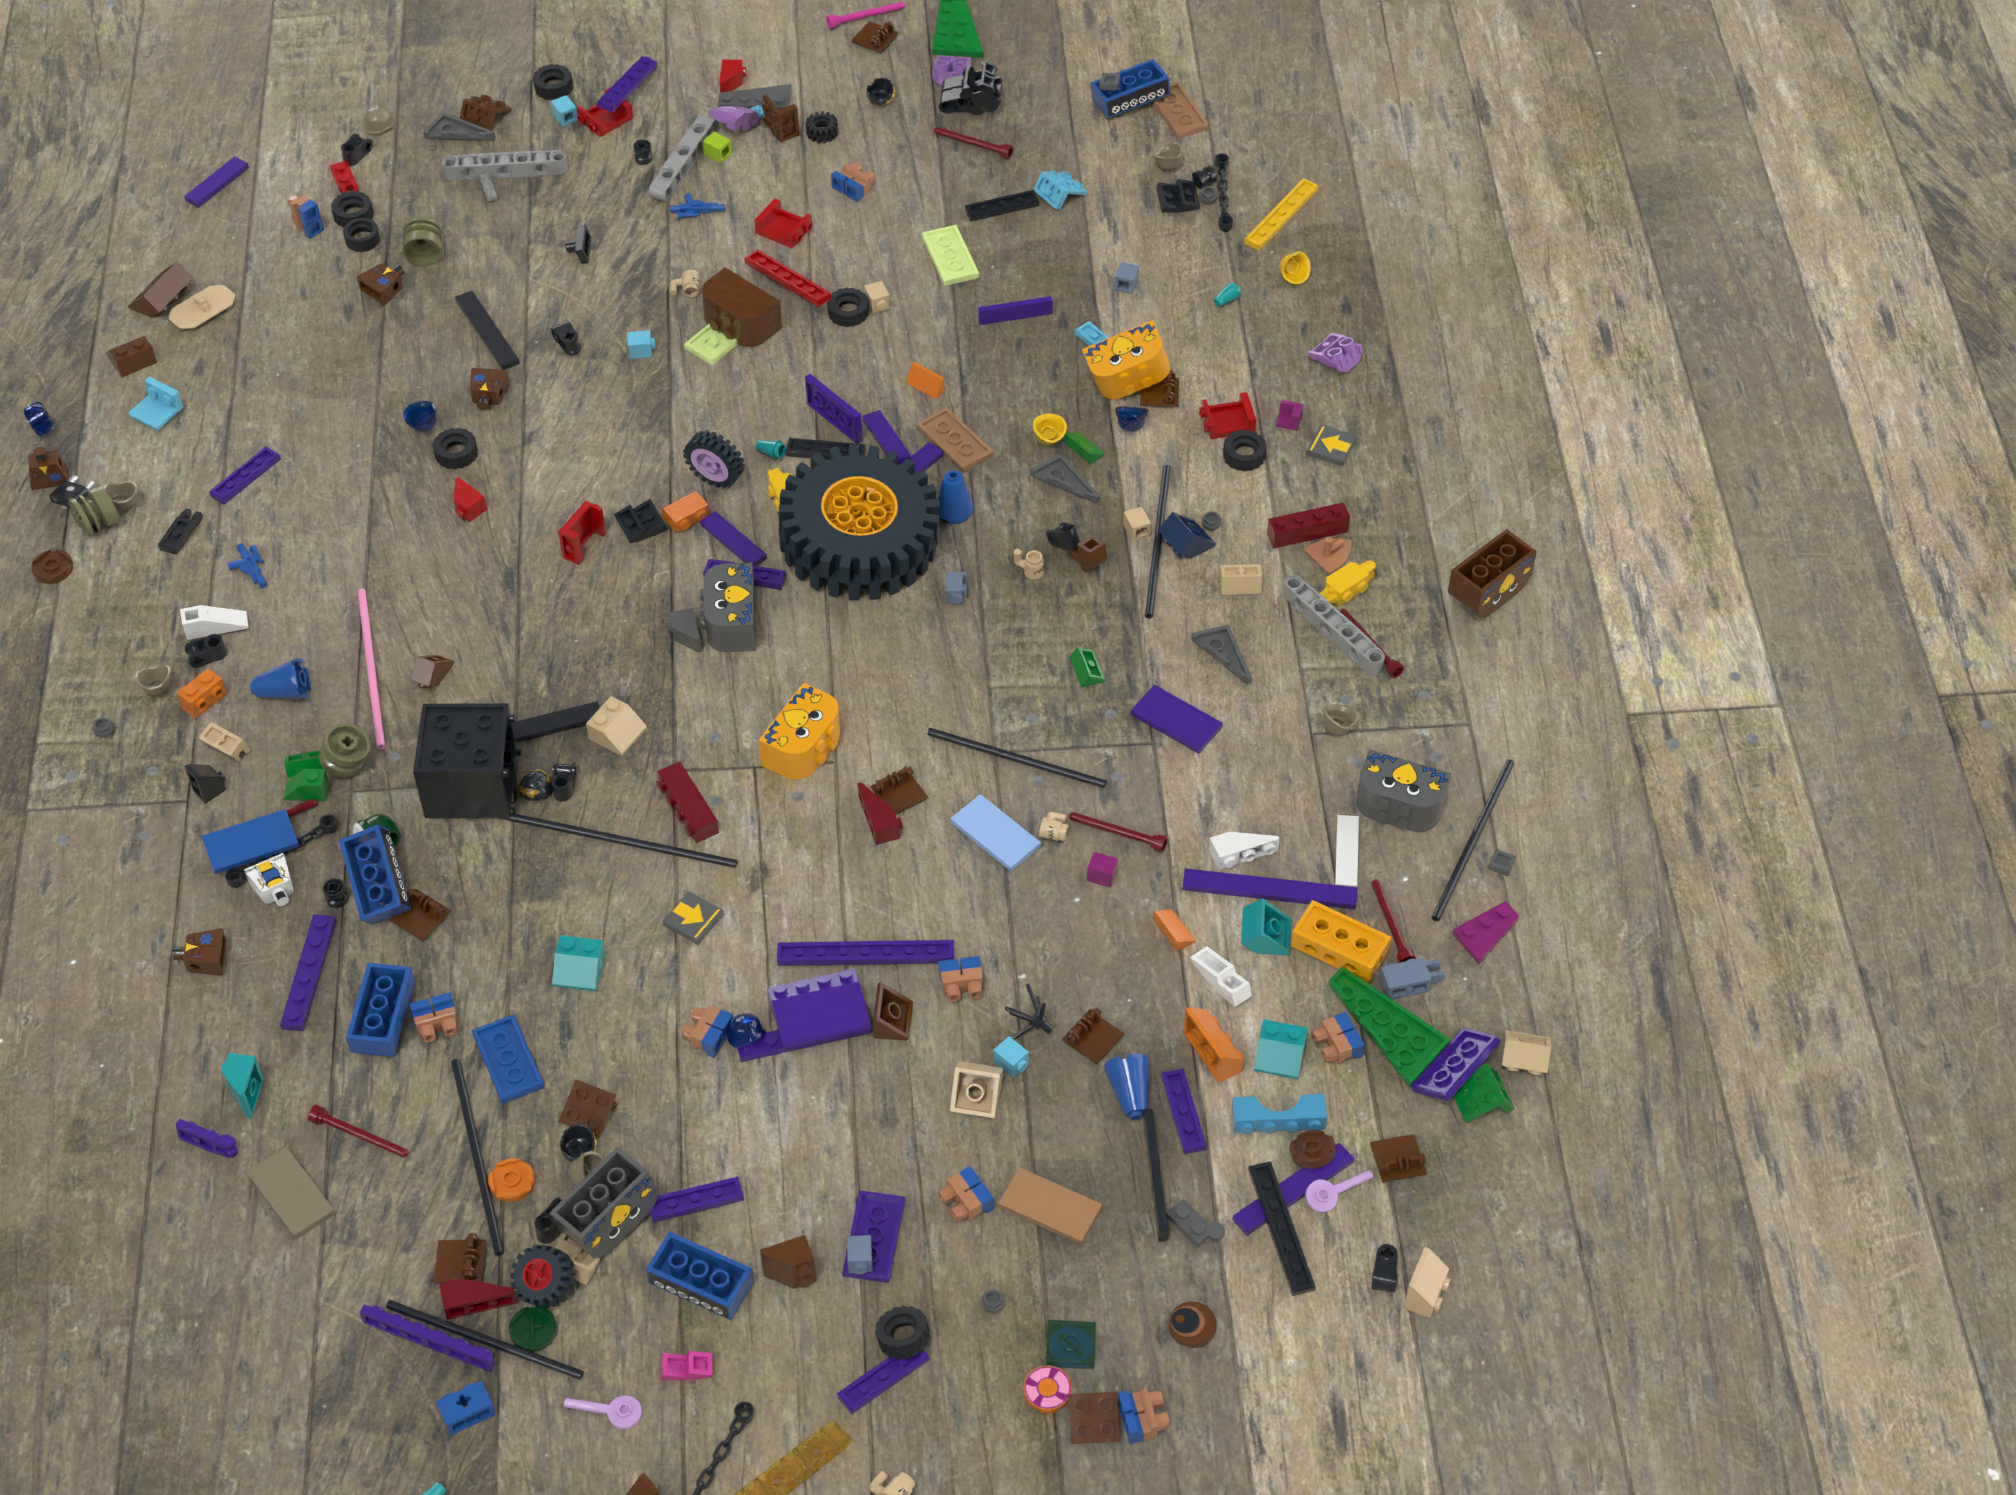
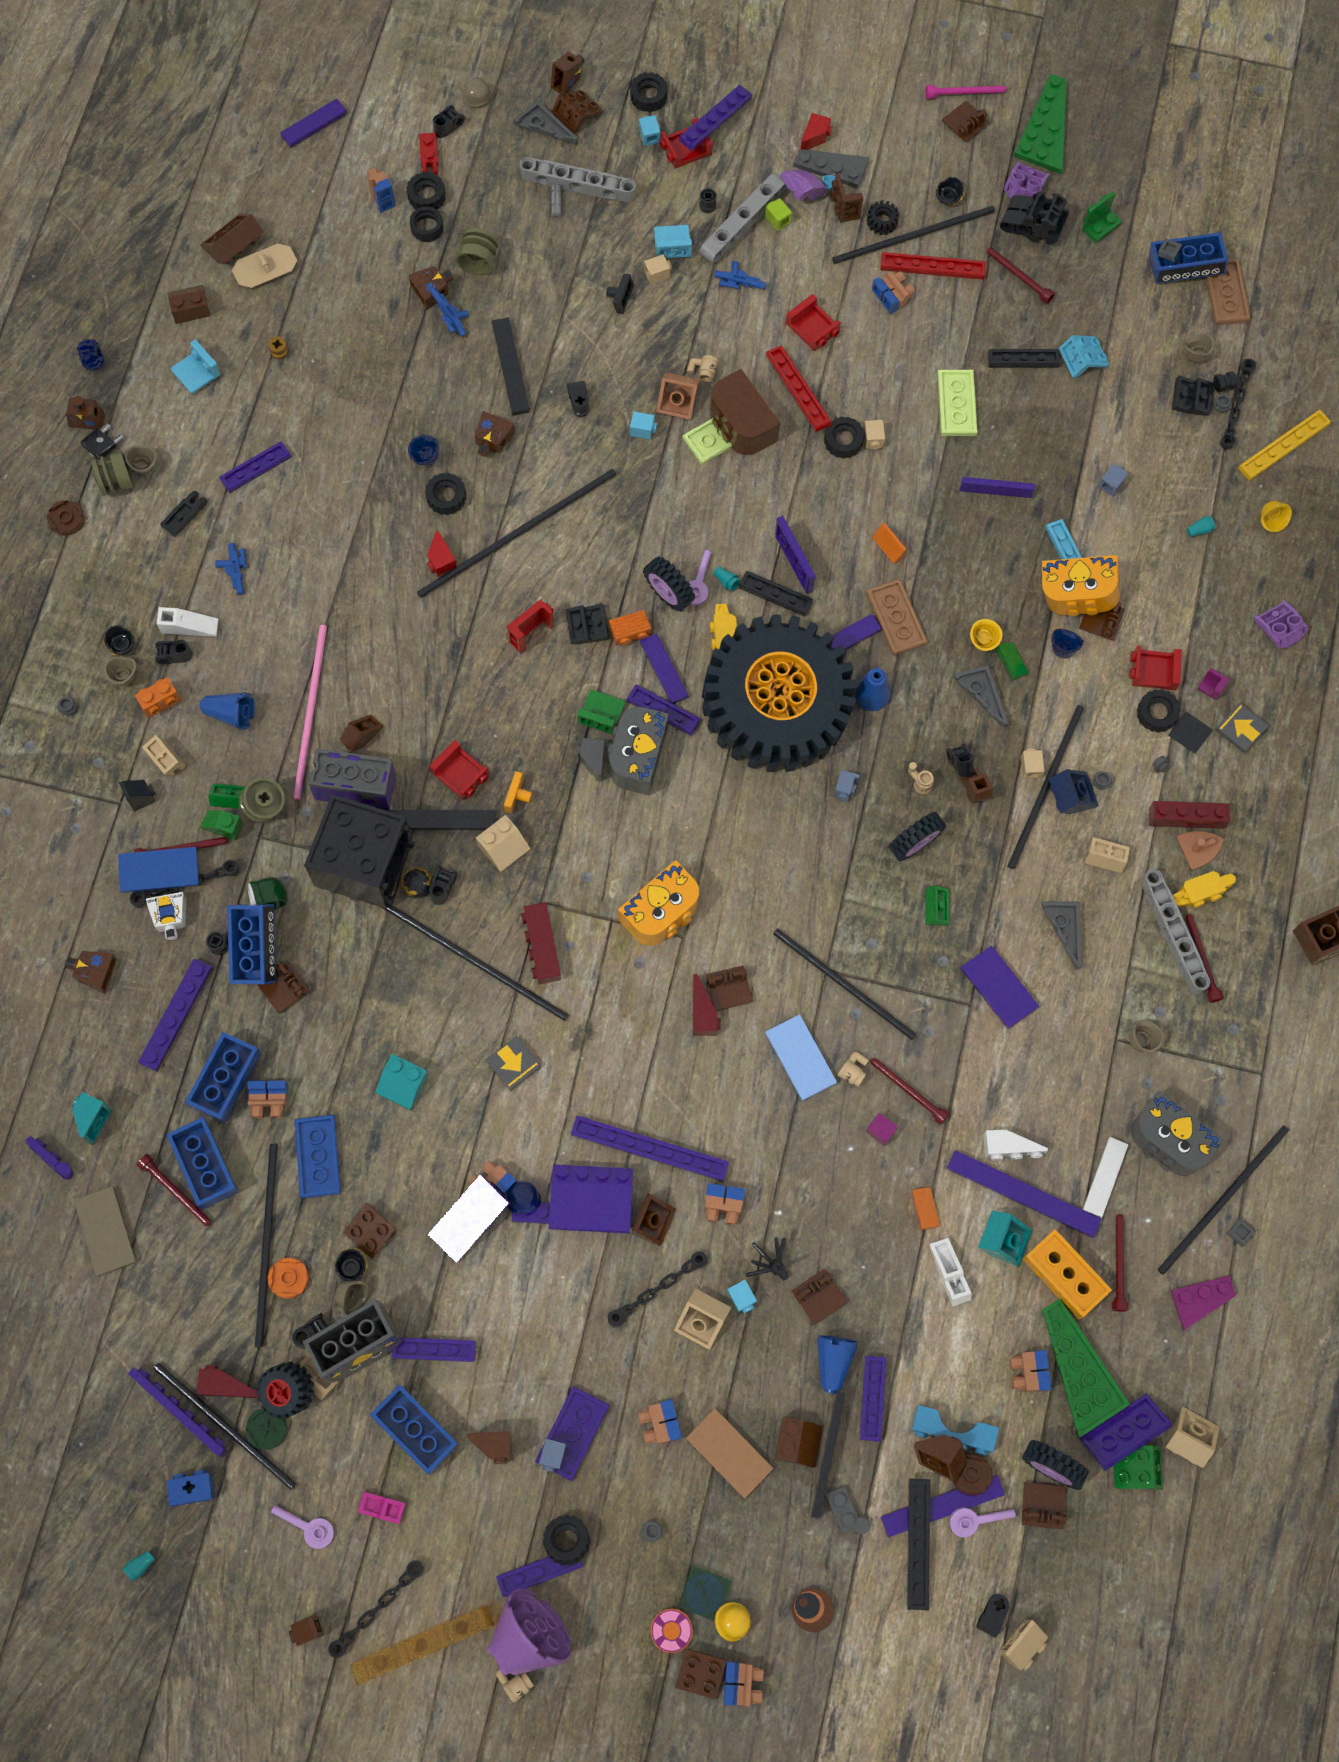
camera: 15 degrees right, 20 degrees up
(143, 654) = (118, 640): none -> black hair
(238, 369) = (282, 350): none -> pearl gold wheel
(382, 1094) = (202, 1163): none -> blue brick
(410, 299) = (452, 314): none -> blue piece
(432, 688) = (353, 777): none -> dark grey piece
(460, 1259) = (224, 1344): reddish brown hinge -> none
(464, 82) = (566, 72): none -> reddish brown torso
(538, 466) = (517, 532): none -> black piece
(547, 677) = (459, 771): none -> red panel
(610, 217) = (657, 269): none -> tan brick
(615, 679) = (516, 793): none -> light orange tile
(619, 193) = (673, 241): none -> medium azure bracket
(668, 312) = (678, 395): none -> nougat slope
(680, 591) = (601, 712): none -> green bracket
(693, 1063) = (469, 1218): none -> tile
(750, 467) = (698, 586): none -> lavender piece
(861, 132) = (920, 232): none -> black piece
(885, 435) = (834, 598): dark purple tile -> none
(886, 153) = (933, 265): none -> red tile
(889, 1432) = (528, 1635): none -> medium lavender cone
(951, 1044) = (653, 1291): none -> black piece
(1033, 82) = (1101, 219): none -> green bracket
(1044, 604) = (917, 836): none -> black wheel
(1111, 1358) = (732, 1621): none -> yellow helmet
(1118, 1172) = (798, 1442): none -> reddish brown slope
(1212, 1044) = (920, 1342): orange slope -> none
(1264, 492) = (1161, 764): none -> dark grey plate
(1273, 1133) = (942, 1455): none -> reddish brown slope
(1280, 1049) = (977, 1365): teal slope -> none
(1283, 462) = (1190, 732): none -> black sticker
(1394, 1105) = (1055, 1464): none -> black wheel
(1409, 977) = (1115, 1328): sand blue hinge -> none

